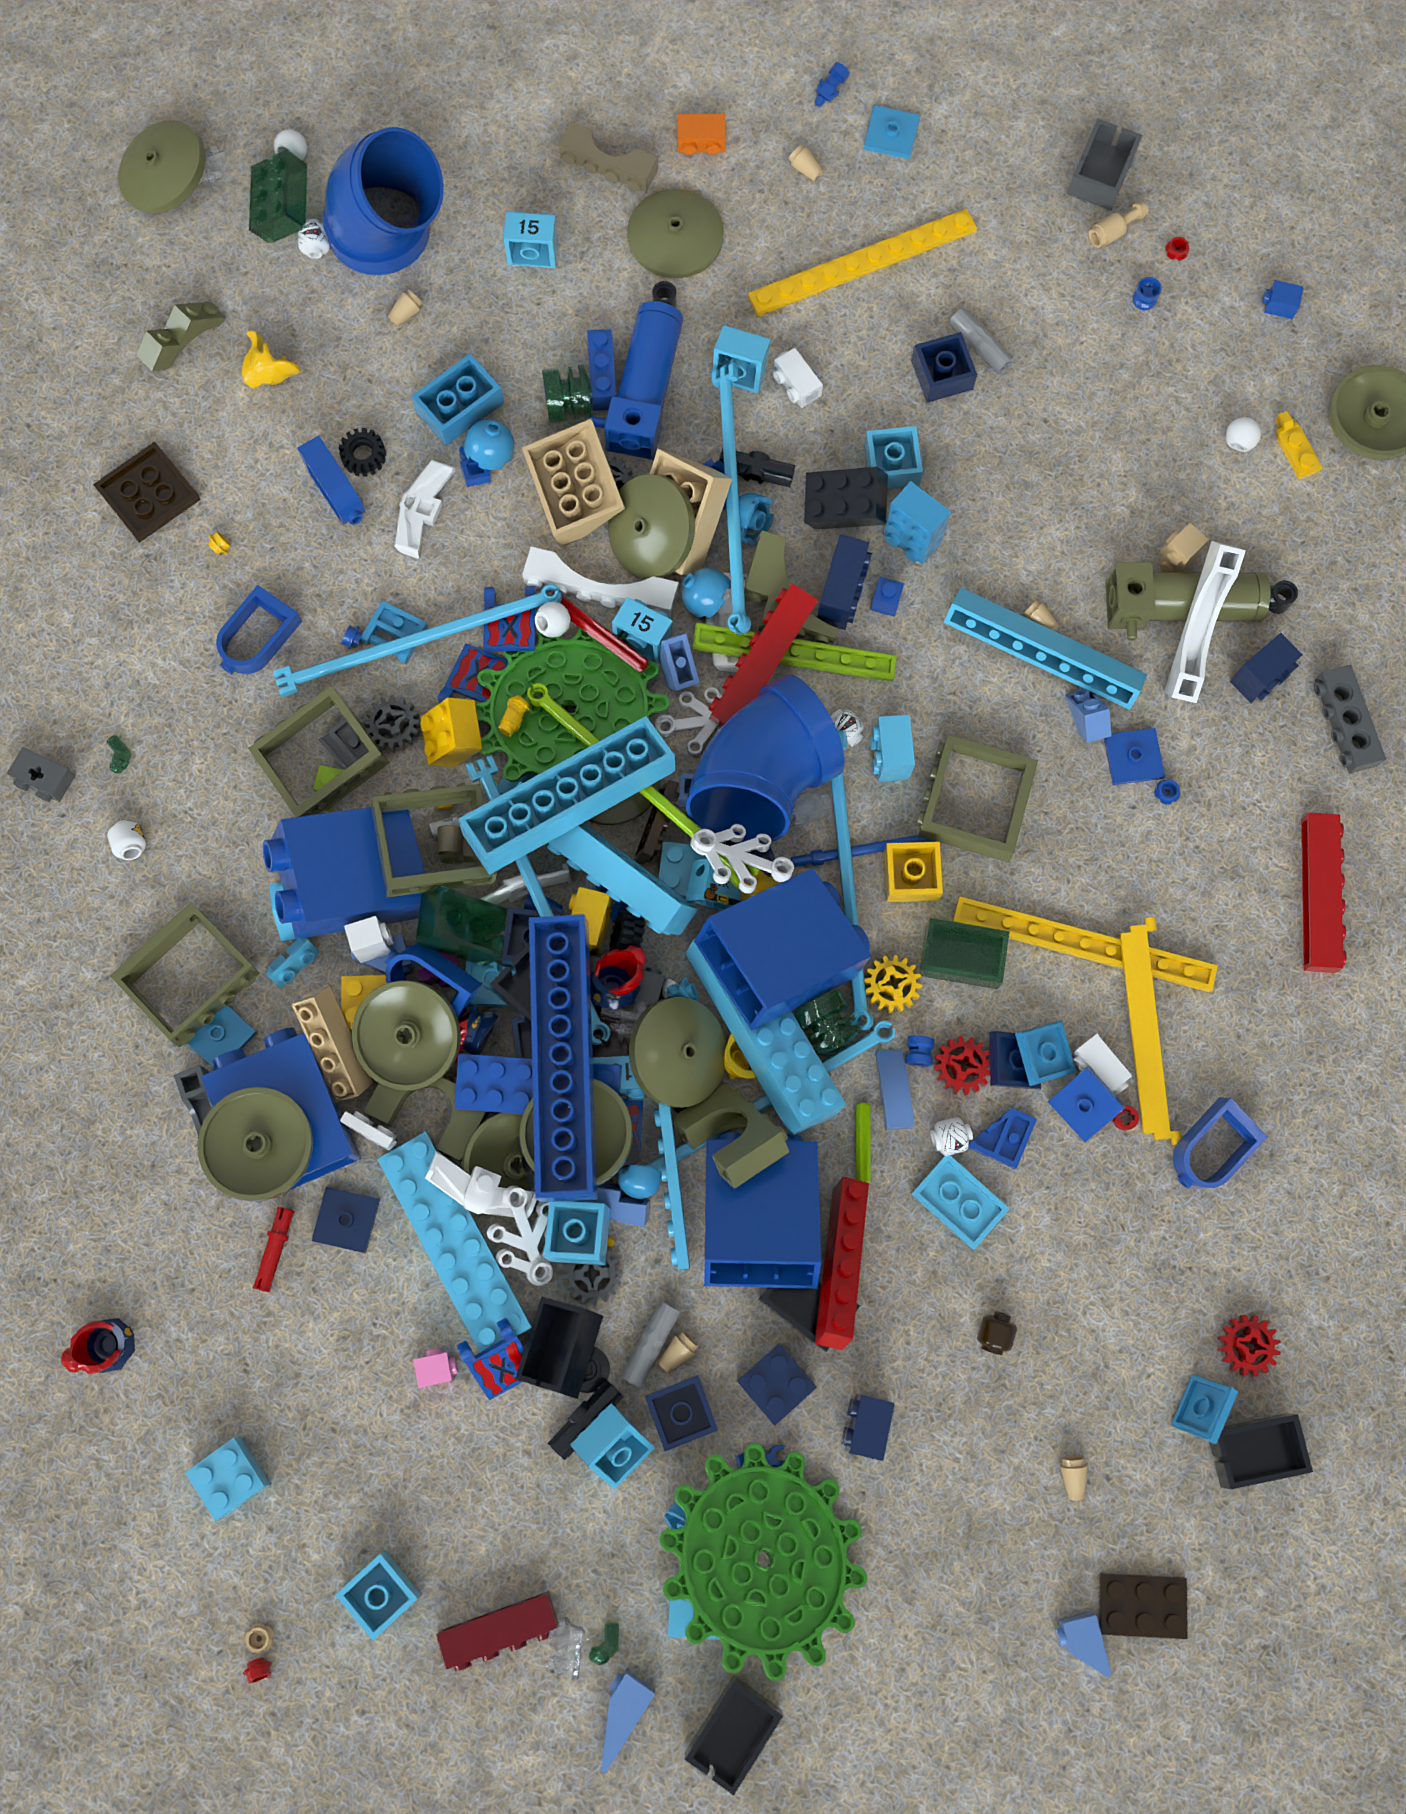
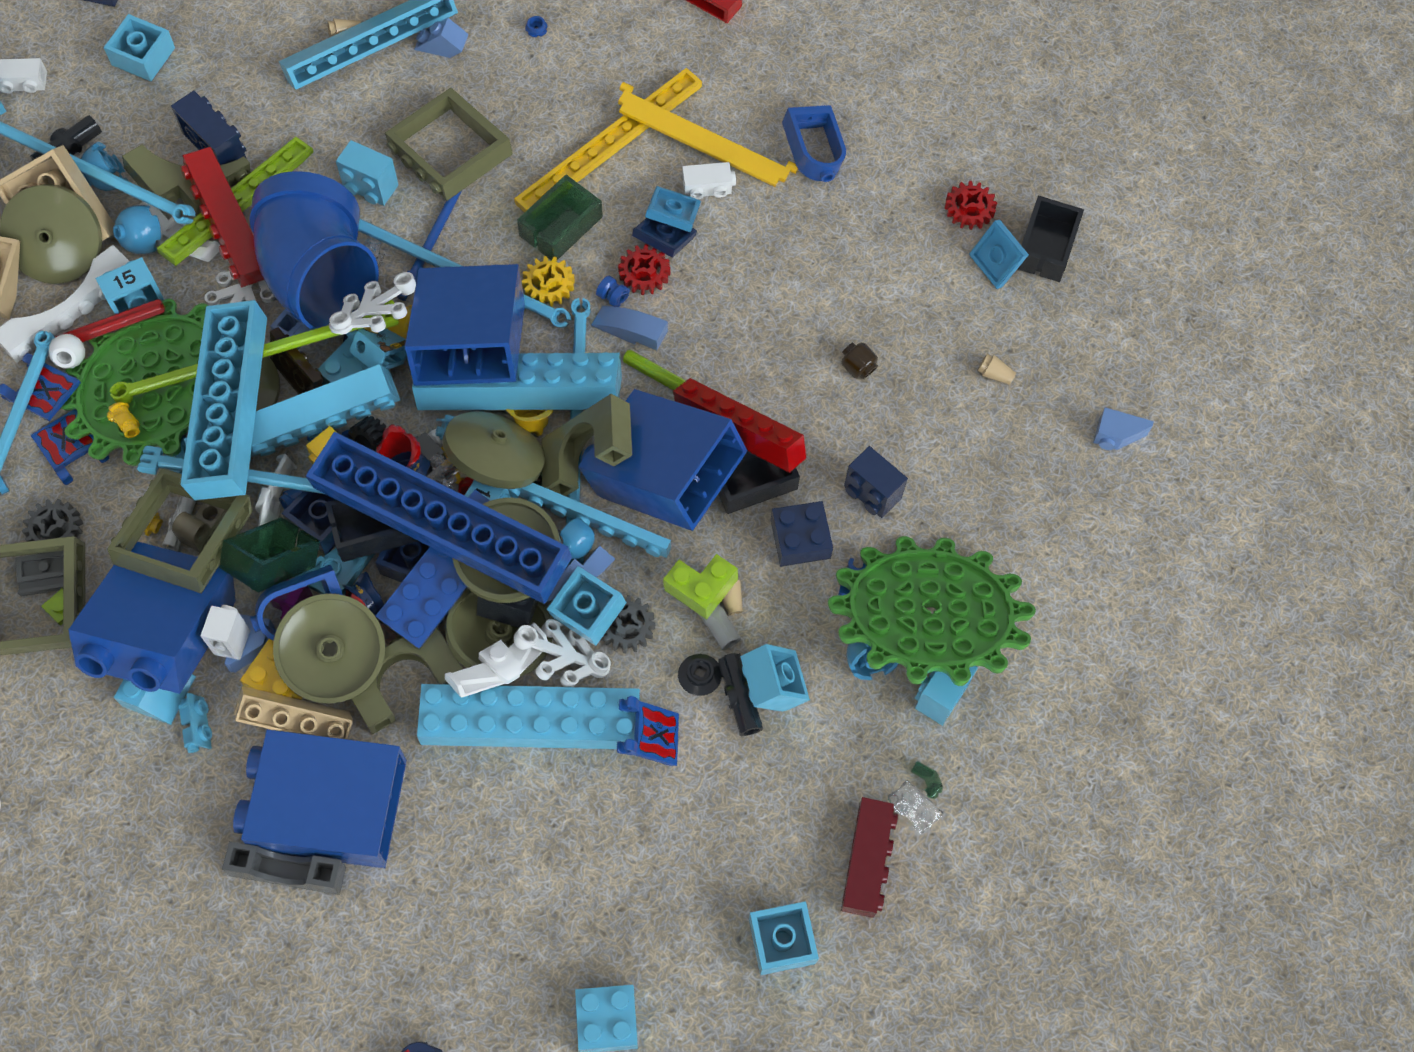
camera: 60 degrees left, 10 degrees down
(157, 948) = (94, 820): olive window -> none
(222, 1035) = (209, 821): dark azure plate -> none
(255, 1144) = (335, 815): olive dish -> none
(273, 1249) = (438, 879): red pin -> none
(345, 1220) = (450, 800): dark blue plate -> none
(363, 1126) = (393, 729): white plate -> none
(435, 1368) = (623, 791): bright pink brick -> none
(451, 732) = (98, 478): yellow brick -> none
(559, 1347) = (669, 675): black piece -> none
(626, 1707) = (989, 792): medium blue slope -> none
(654, 1329) = (704, 590): none -> lime brick
(678, 663) = (178, 280): medium blue slope -> none
(681, 1413) = (780, 614): dark blue brick -> none
(733, 1735) = (1052, 714): black piece -> none
(827, 1025) = (544, 337): clear green wheel -> none
(846, 498) = (144, 91): black brick -> none
(887, 596) = (245, 114): blue brick -> none
(913, 872) = (472, 216): yellow brick -> none
(916, 523) = (204, 55): dark azure brick -> none
(951, 1136) = (692, 307): white head -> none
(960, 1201) = (745, 330): medium azure plate -> none
(1005, 1138) = (718, 273): blue wing -> none
(1086, 1104) = (729, 204): blue plate -> none
(1131, 1124) = (756, 196): red bush -> none
(1134, 756) = (494, 33): blue plate -> none
(1143, 1606) = (1115, 378): dark brown plate -> none

